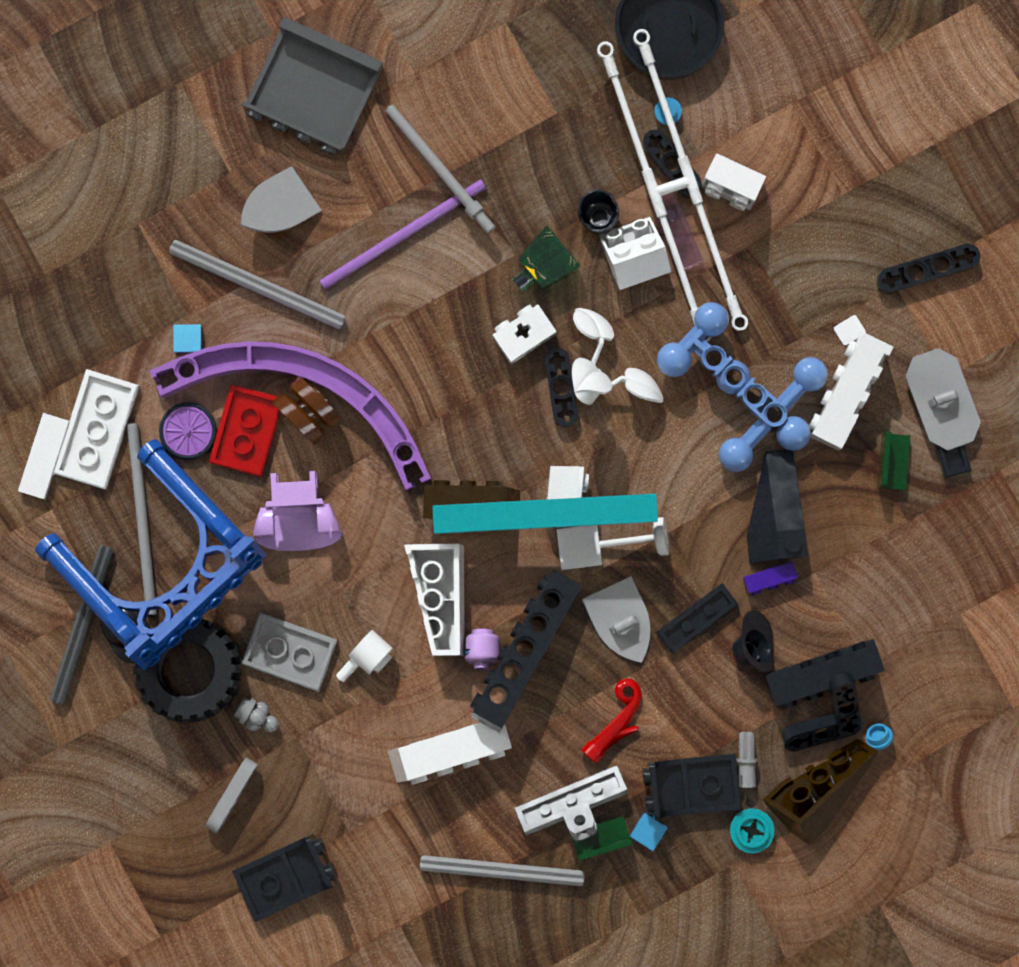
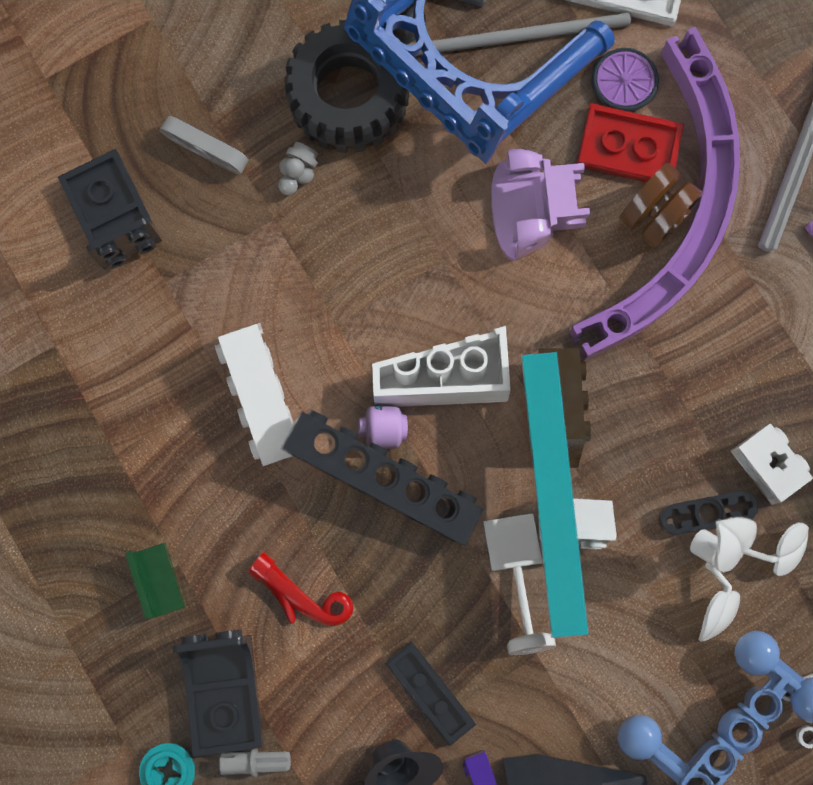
camera: 90 degrees right, 5 degrees down
(187, 338) = (736, 73): medium azure tile -> none
(289, 652) = (372, 205): light grey tile -> none
(369, 654) = (372, 294): white piece -> none
(502, 870) = (118, 463): light grey axle -> none
(573, 805) = (196, 545): plate -> none
(621, 619) = (426, 597): light grey shield -> none
(648, 831) = (163, 637): dark azure tile -> none

